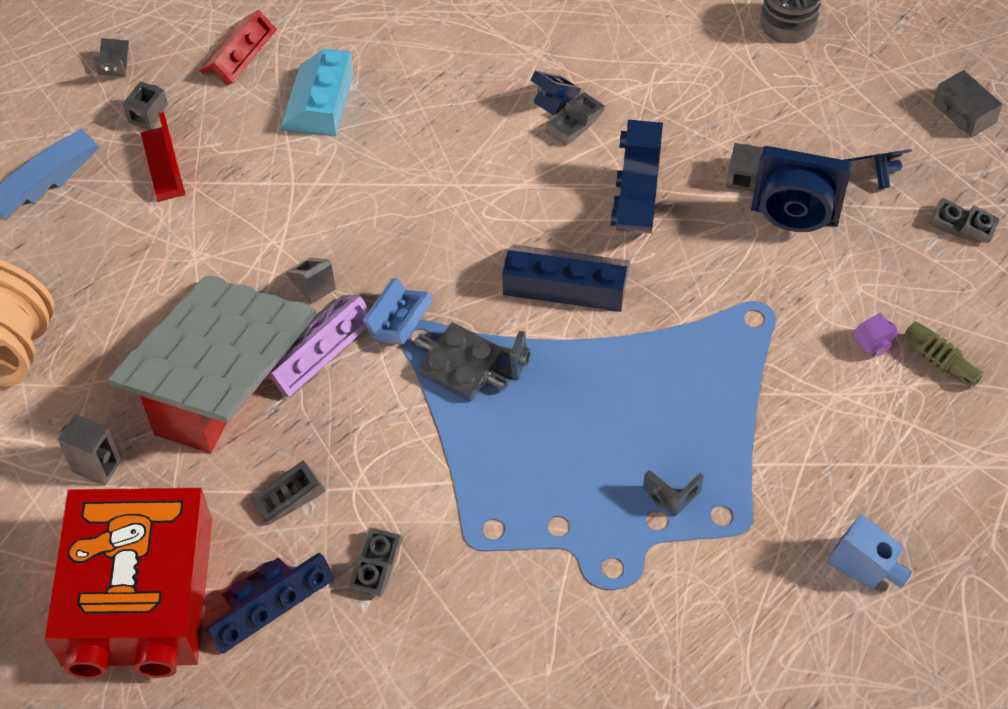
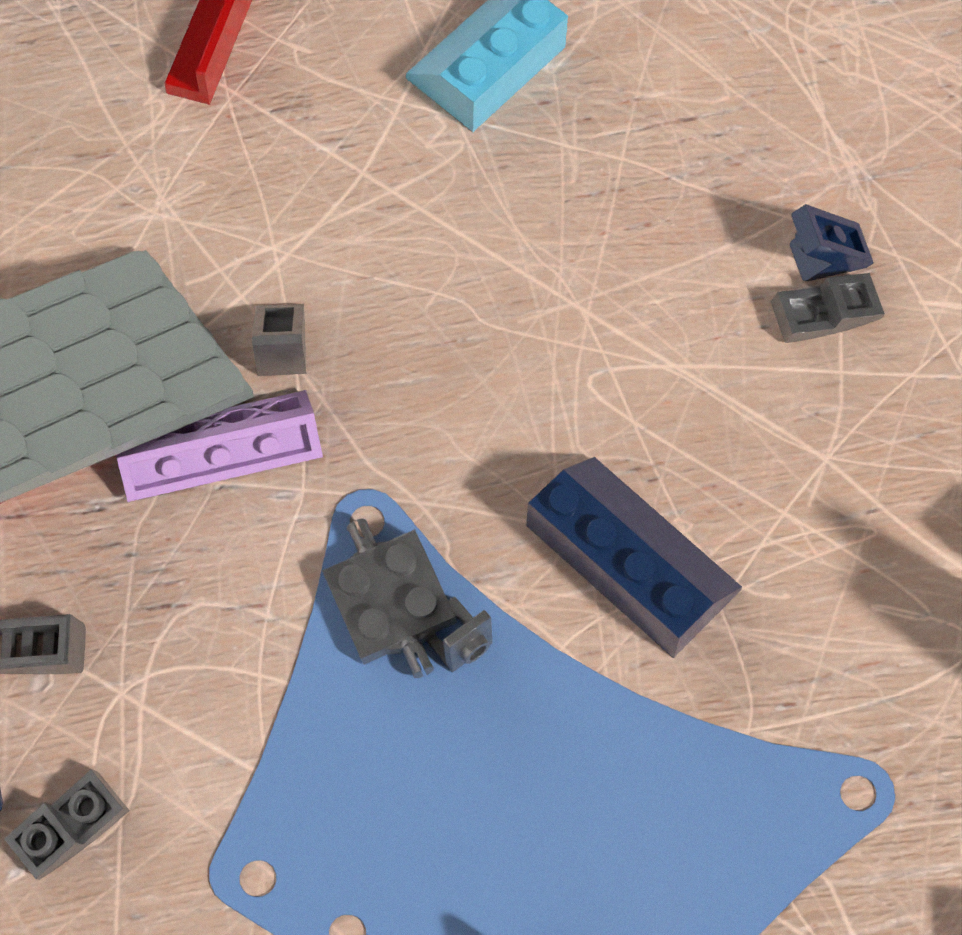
camera: 30 degrees right, 10 degrees up
(396, 313) = (352, 466): medium blue bracket -> none
(638, 180) = (837, 474): dark blue brick -> none

